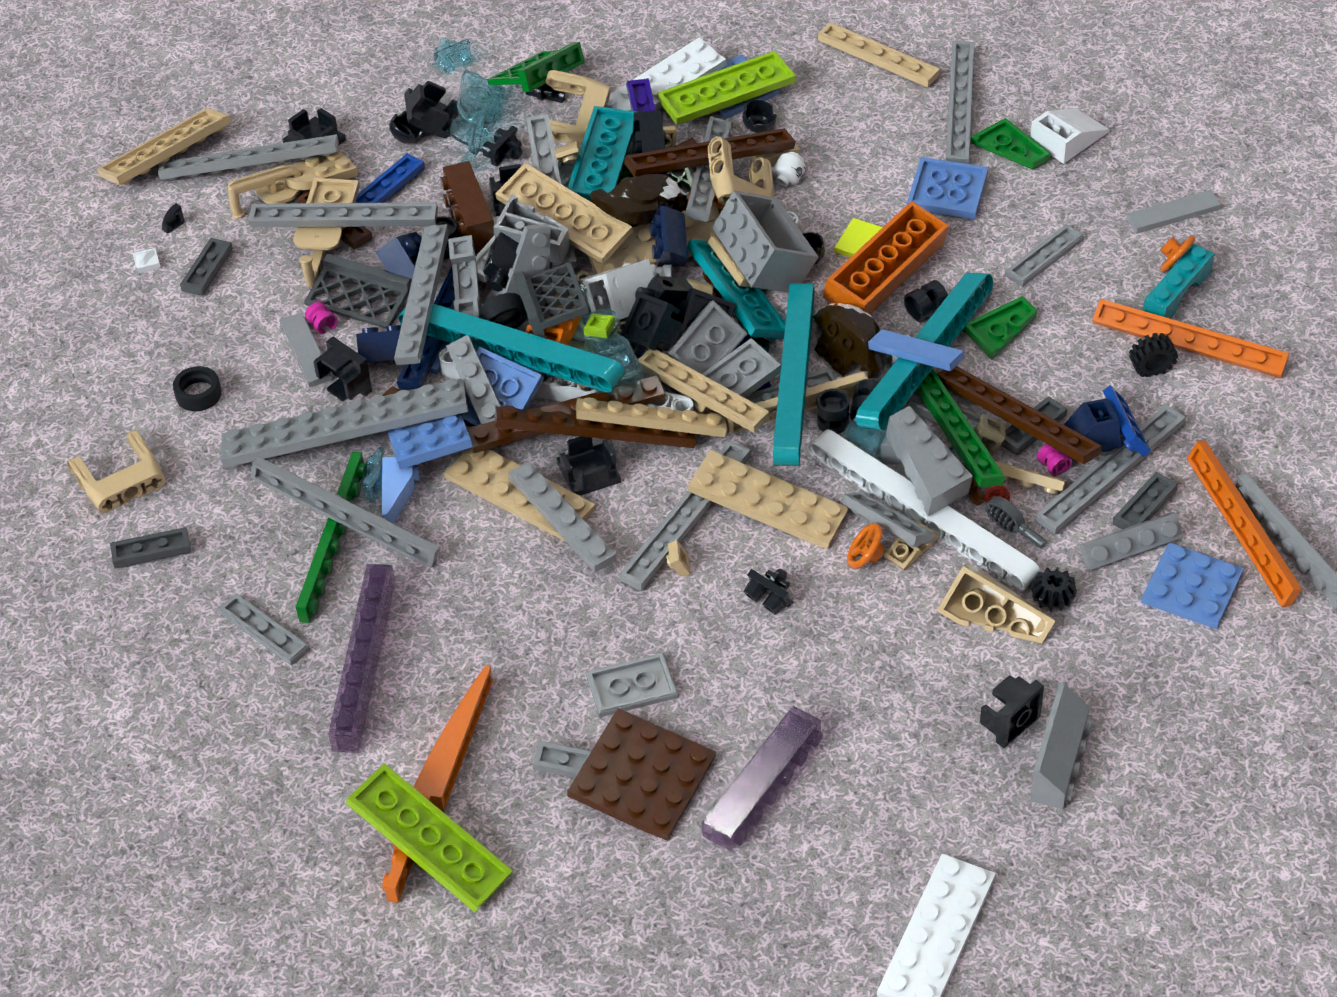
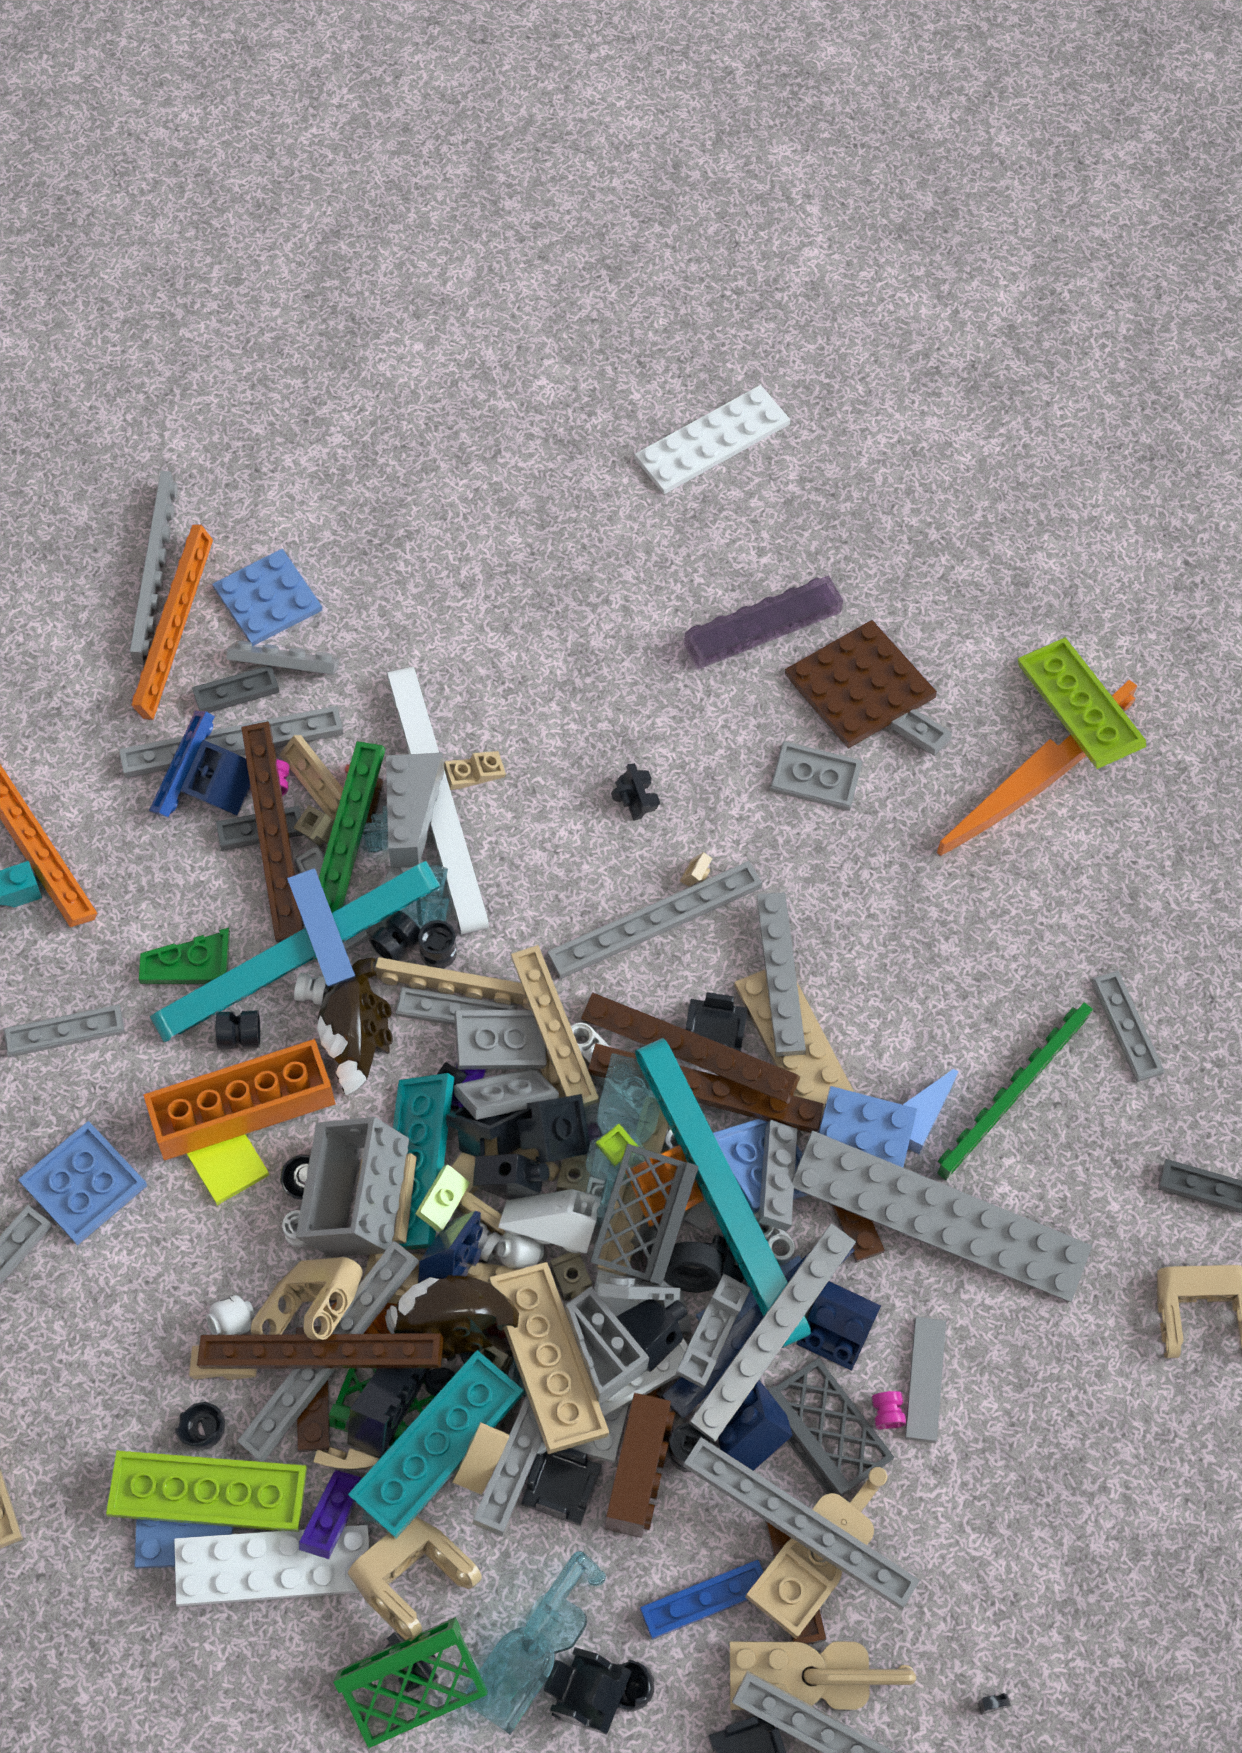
camera: 155 degrees left, 15 degrees up
(146, 260) = (1053, 1651): white tile -> none
(200, 401) = (1058, 1401): black tyre -> none
(206, 266) = (985, 1588): dark grey plate -> none
(344, 512) = (1005, 1089): light grey plate -> none
(347, 366) = (906, 1289): black panel -> none
(362, 659) = (1048, 929): clear purple brick -> none
(373, 481) = (931, 1148): clear light blue slope -> none
(505, 146) = (515, 1585): black hips -> none
(650, 417) = (628, 1025): tan plate -> none
(700, 263) = (442, 1198): none -> yellowish green plate
(768, 499) = (571, 886): tan plate -> none
(793, 375) = (447, 996): teal beam -> none
(869, 548) = (517, 779): orange piece -> none
(888, 518) = (479, 795): light grey plate -> none
(988, 603) = (451, 670): tan wedge -> none
(1011, 519) = (366, 733): dark grey piece -> none
(1020, 711) = (519, 551): black panel -> none
(1053, 589) = (378, 652): black gear -> none
(1060, 749) = (510, 509): light grey slope -> none
(1153, 355) = (87, 823): black tyre -> none

